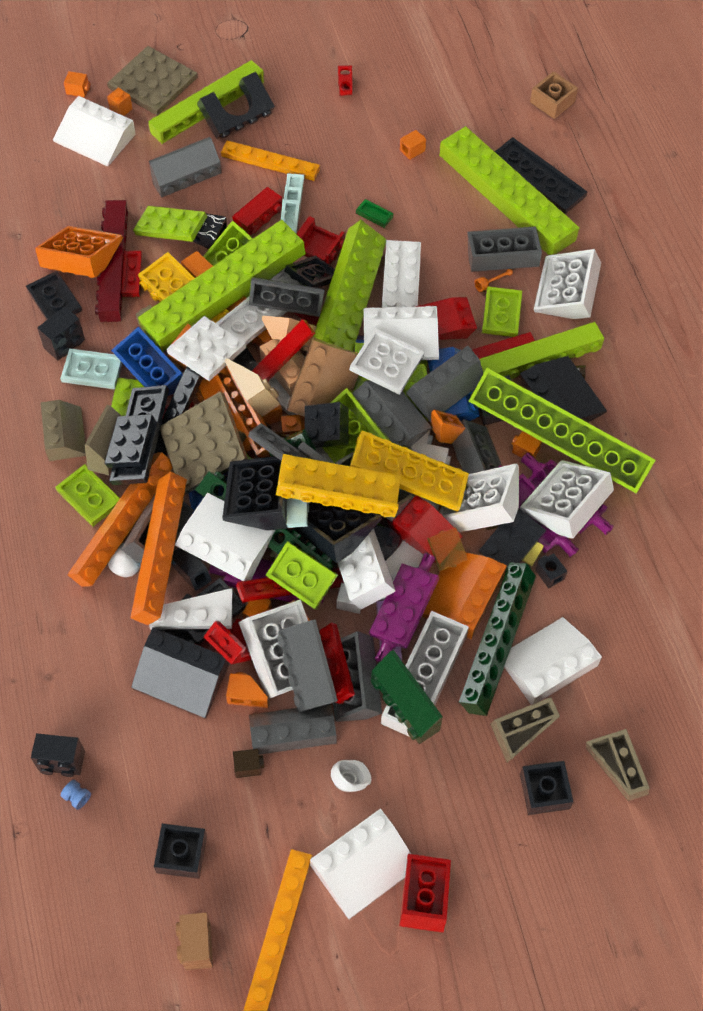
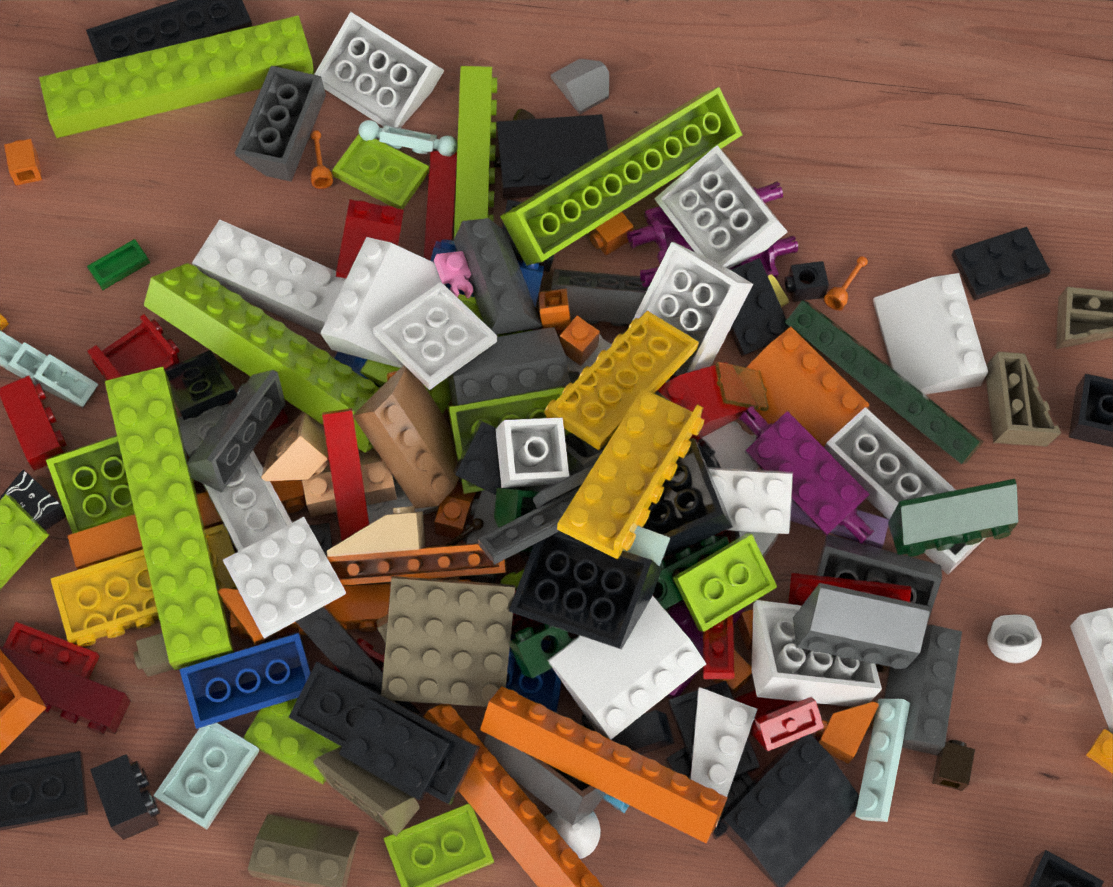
camera: 70 degrees left, 5 degrees up
(232, 717) = (882, 760): none -> light aqua plate
(329, 431) = (532, 452): none -> white brick
(432, 445) = (579, 340): none -> orange brick
(436, 358) = (454, 270): none -> bright pink plate
(530, 313) = (399, 137): none -> light aqua plate
(550, 593) = (838, 296): none -> orange hinge
(627, 396) = (583, 83): none -> light grey slope
(633, 690) = (1000, 263): none -> black plate

